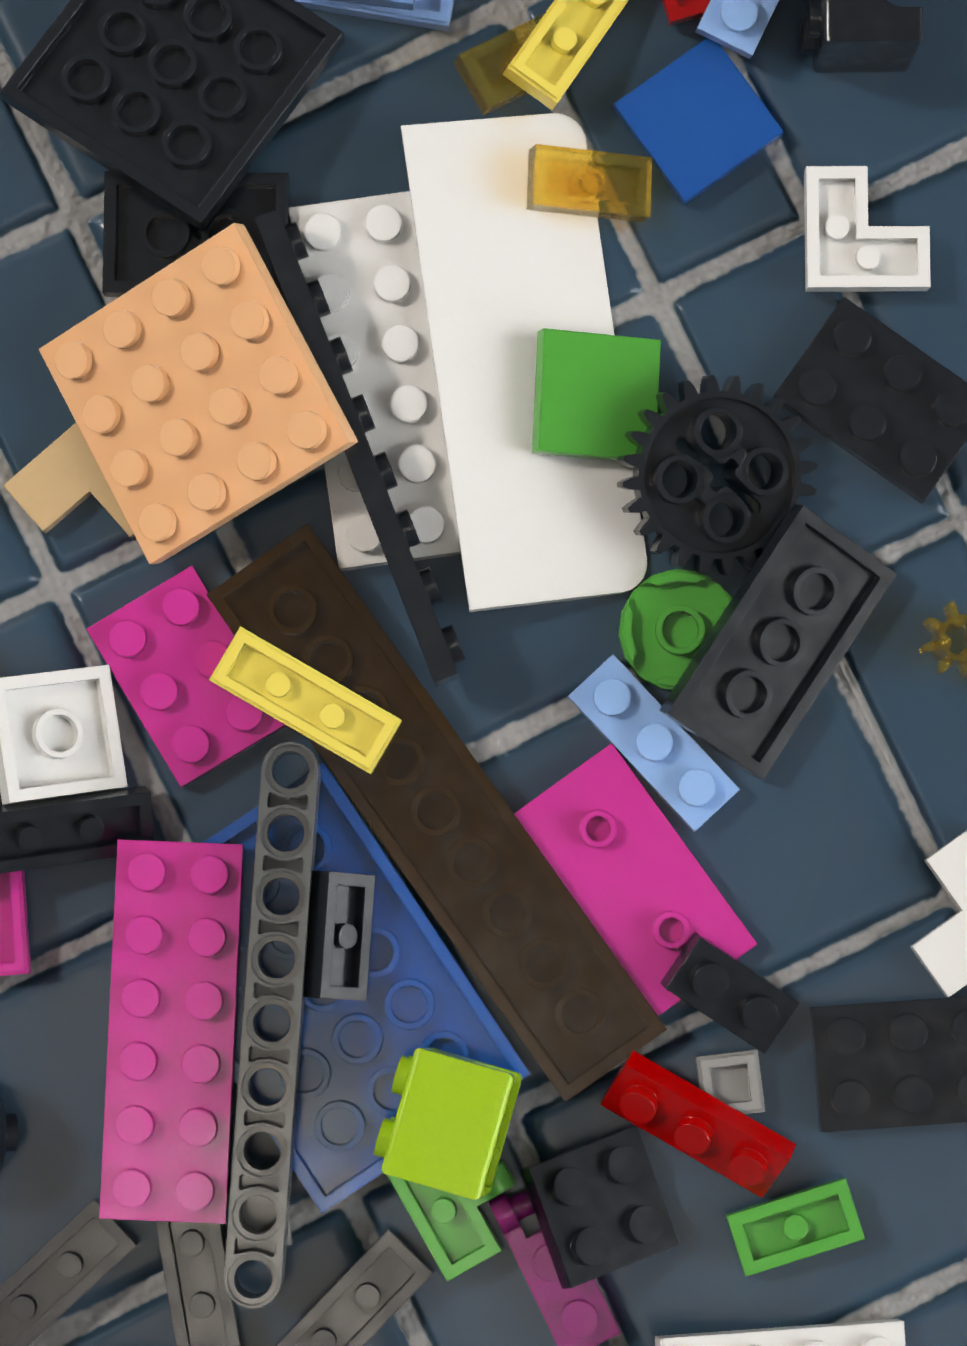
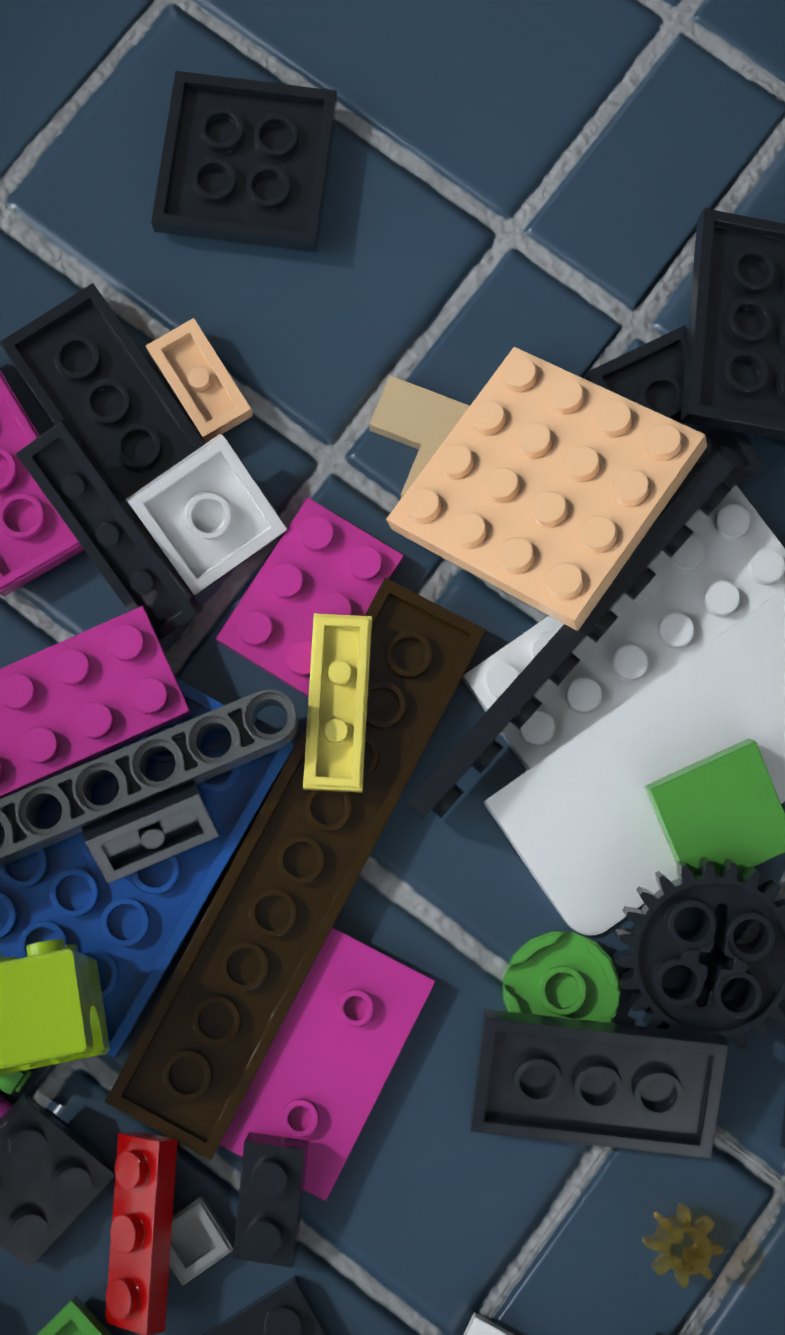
camera: 60 degrees right, 5 degrees down
(653, 743) = (453, 1018): light blue plate -> none

